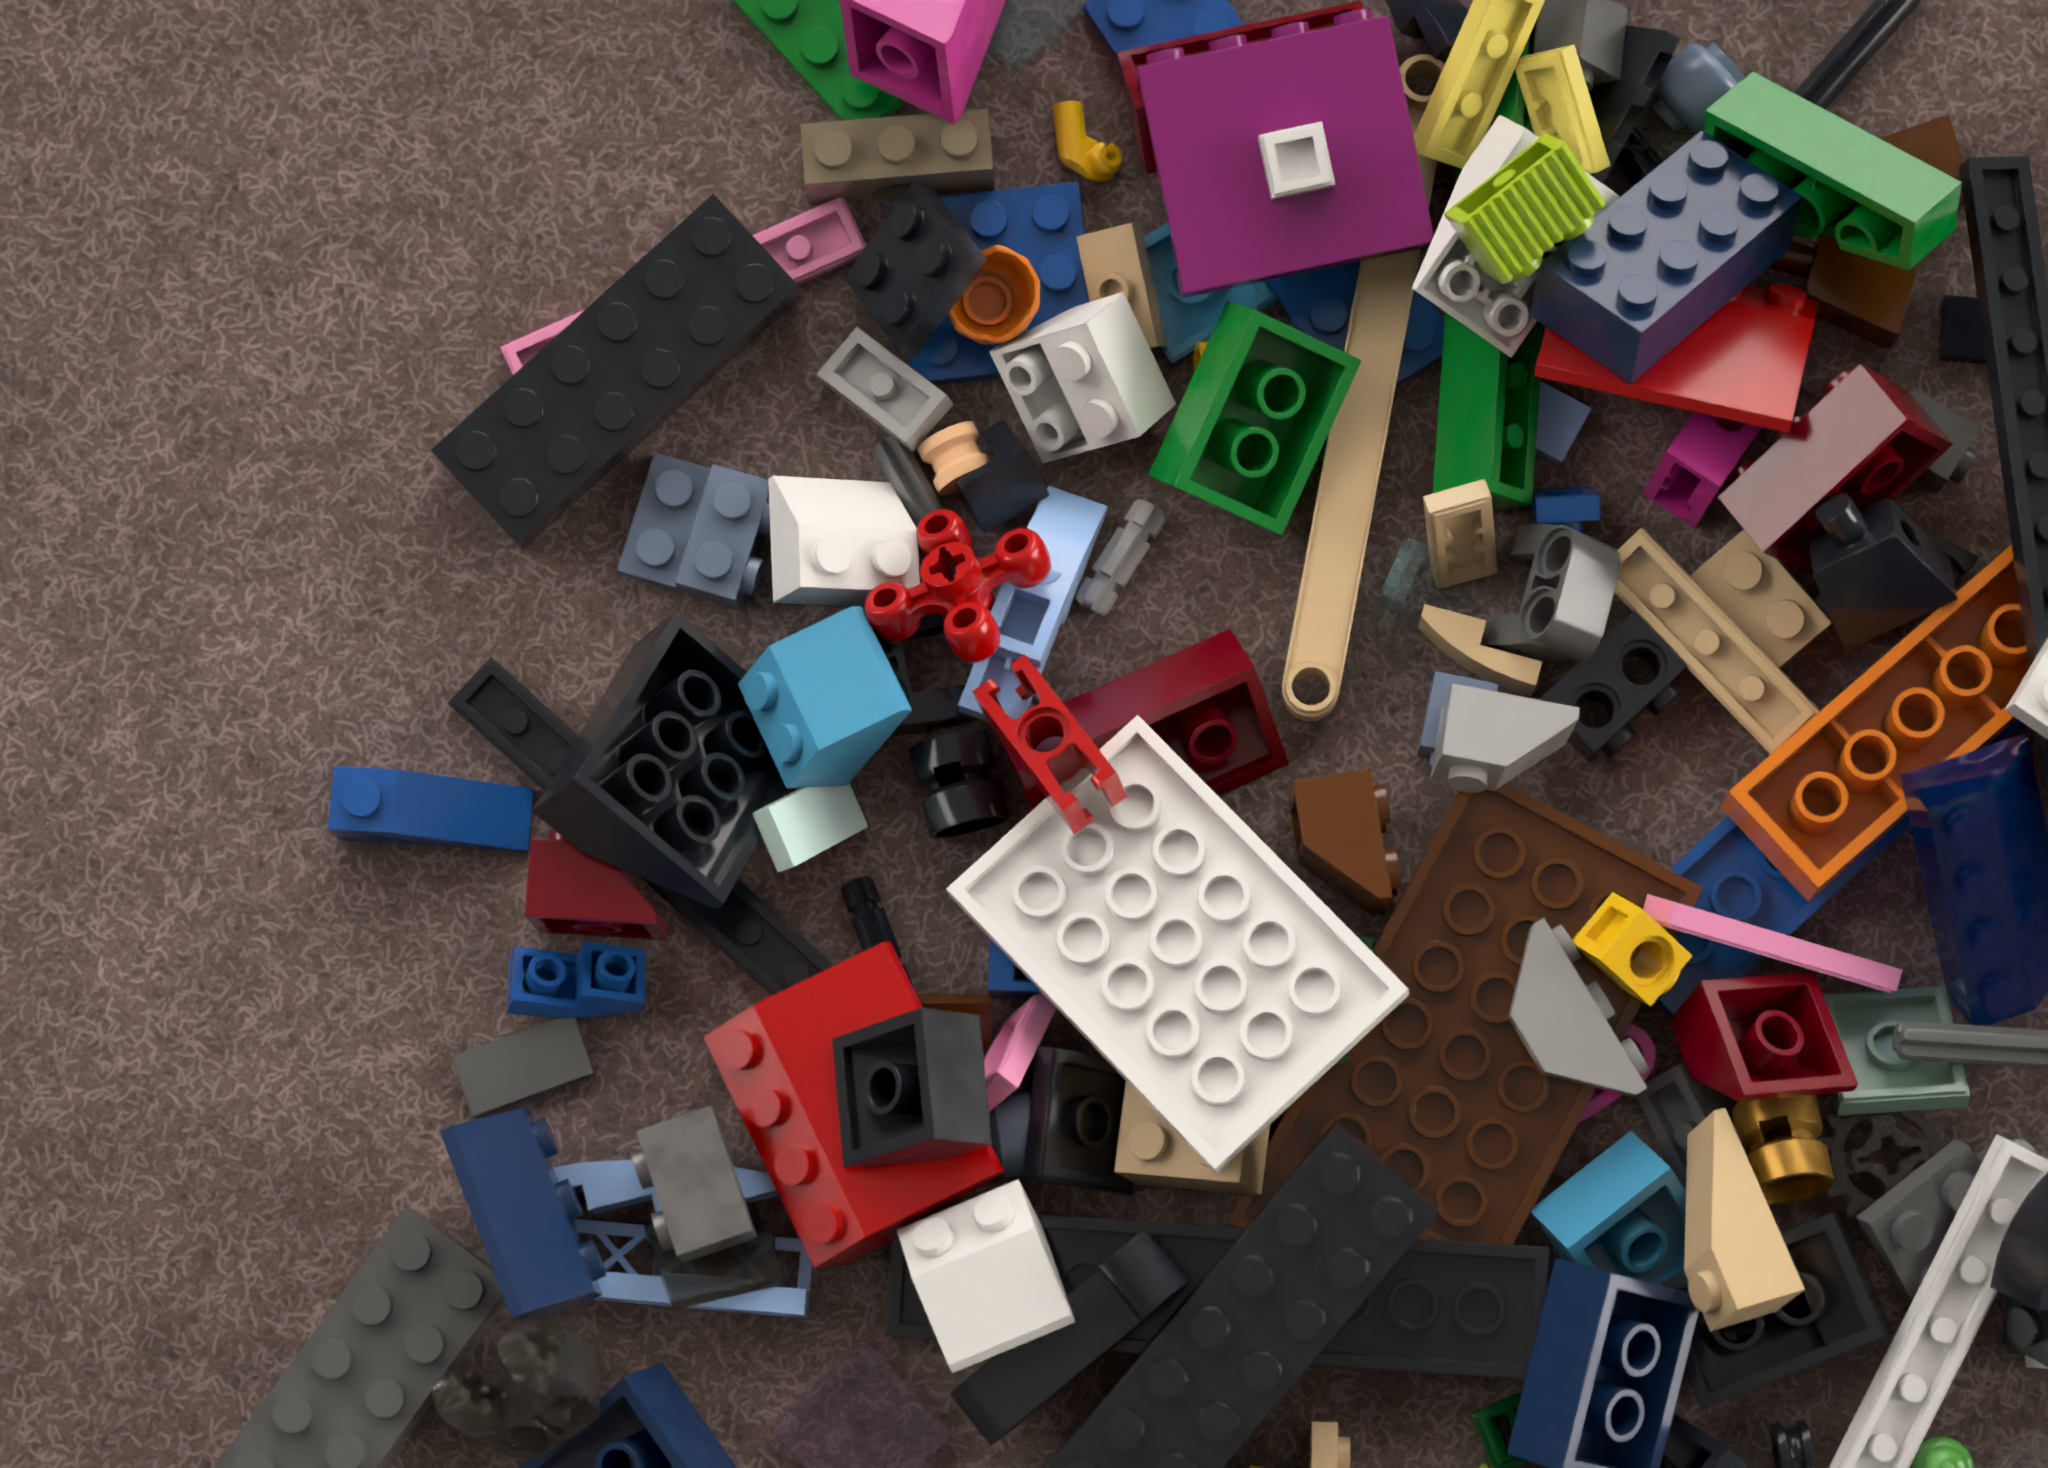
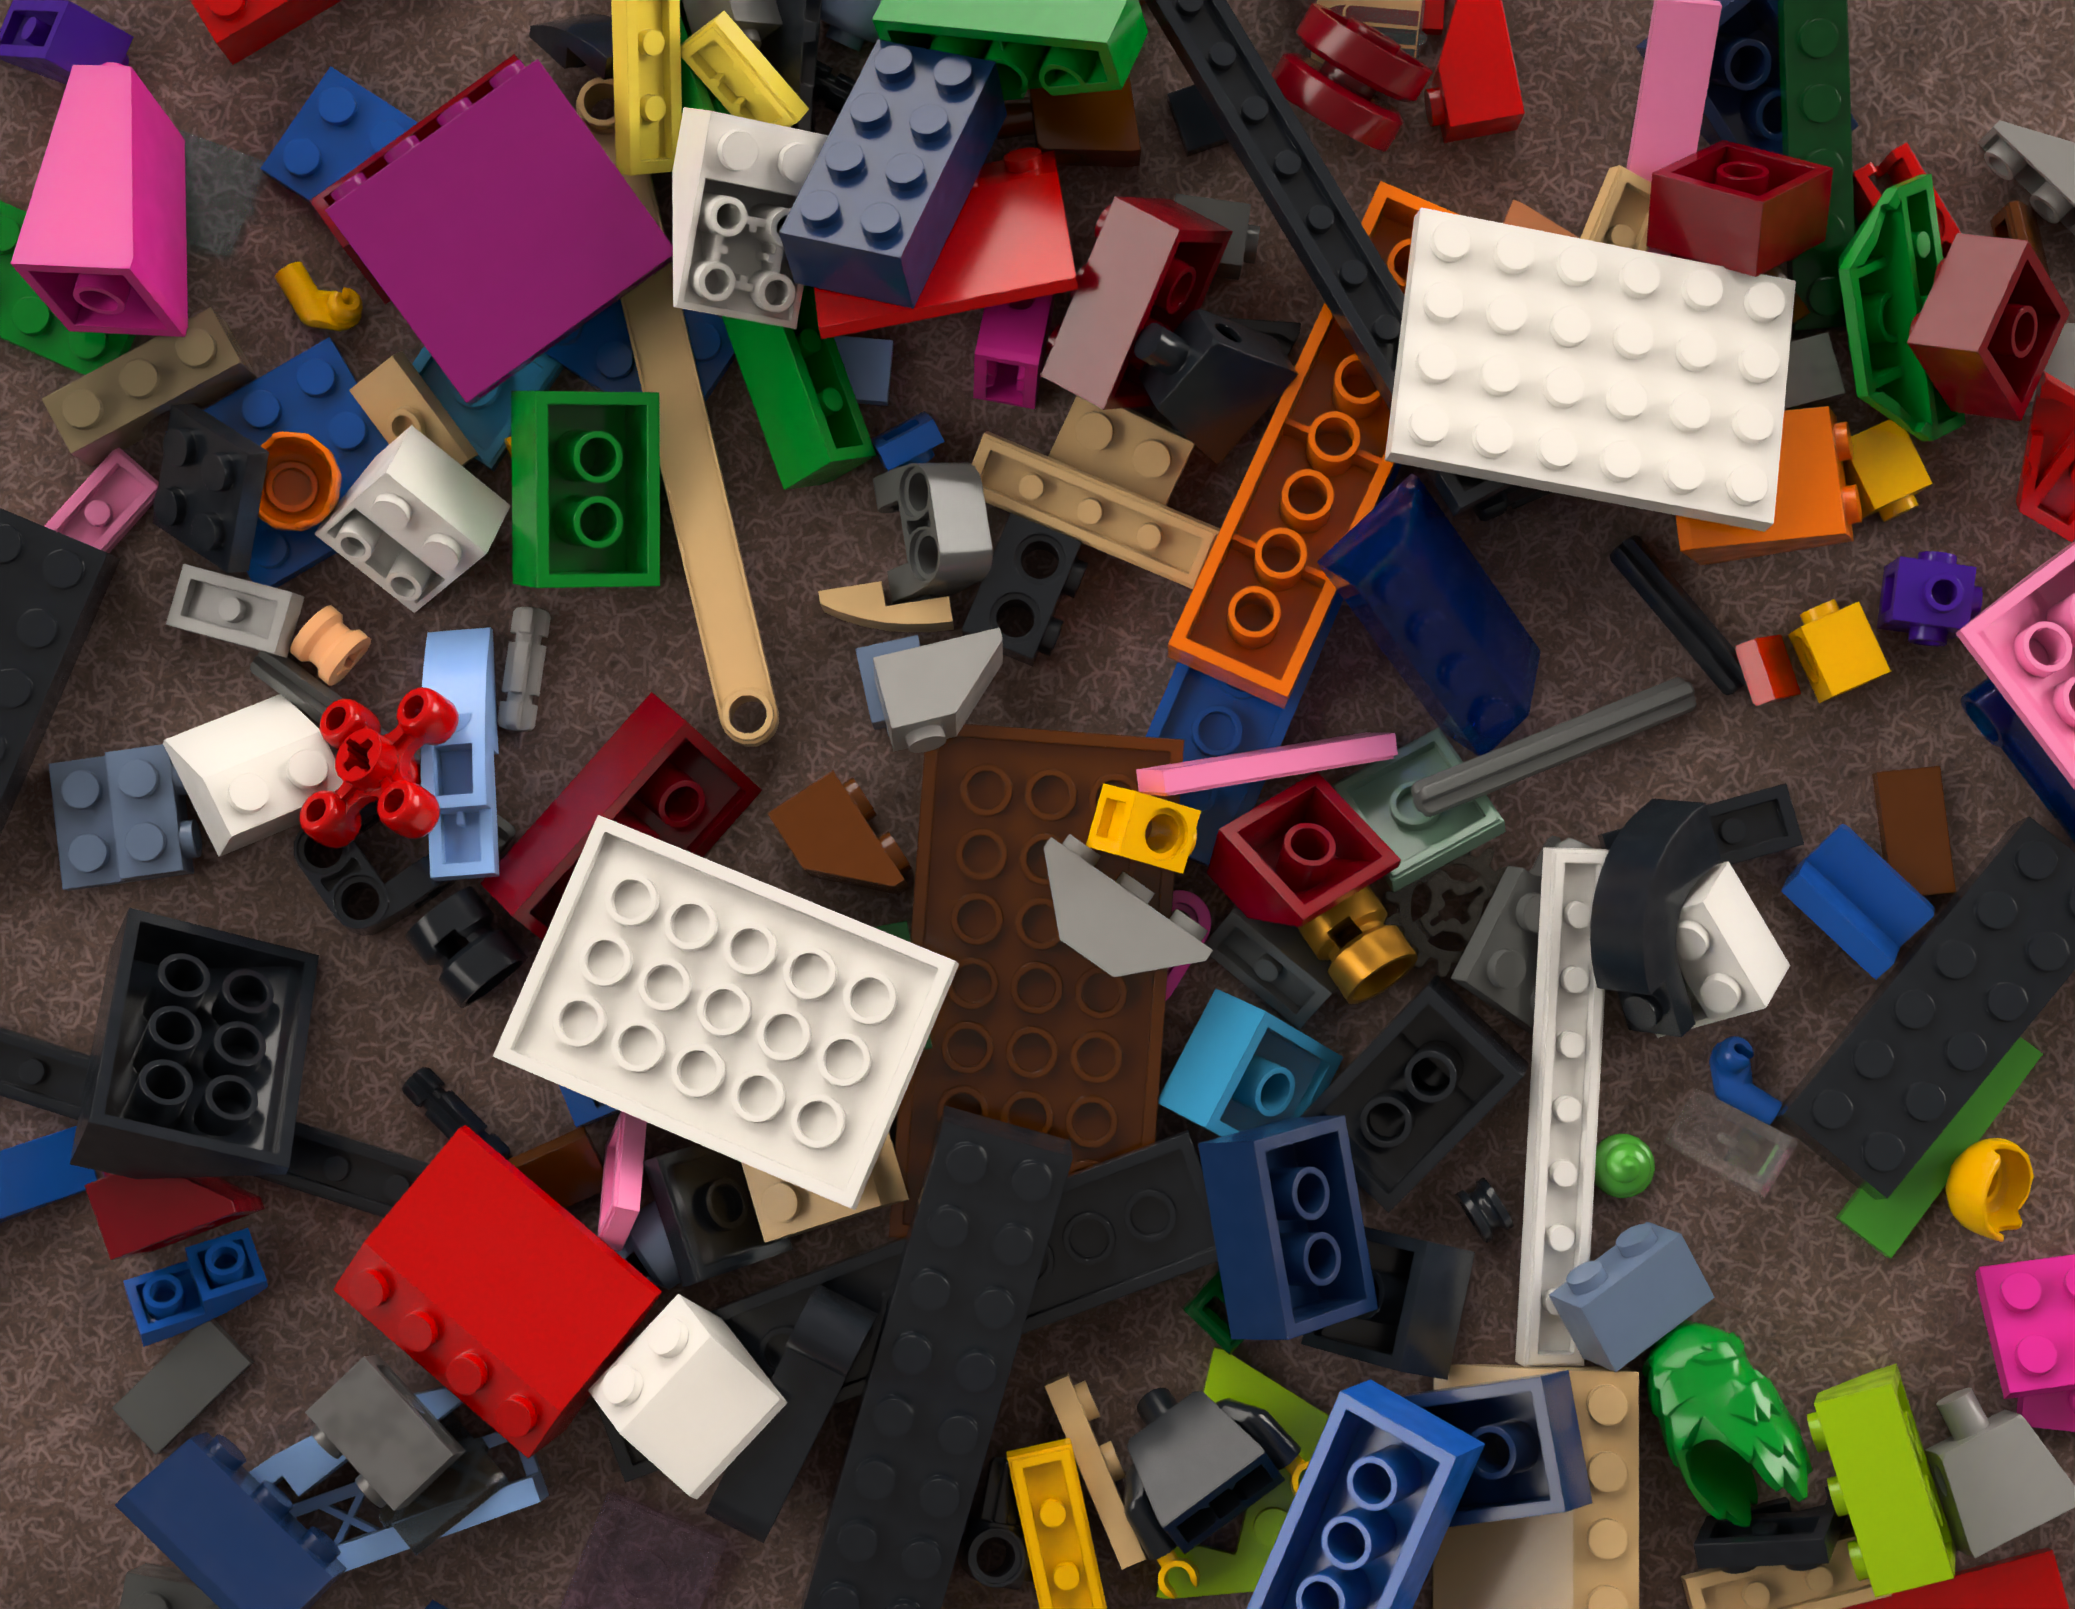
camera: 30 degrees left, 5 degrees up
(808, 823) = (342, 1044): light aqua tile -> none
(825, 700) = (304, 929): dark azure slope -> none
(912, 1089) = (542, 1258): black slope -> none
(1003, 484) = (383, 651): black panel -> none
(1045, 721) = (504, 876): red piece -> none
(1296, 160) = (513, 233): white tile -> none
(1403, 575) = (788, 572): clear light blue tile -> none
(1460, 534) = (822, 511): tan plate -> none
(1526, 210) = (743, 188): lime brick -> none
(1732, 1242) = (1349, 1053): tan slope -> none

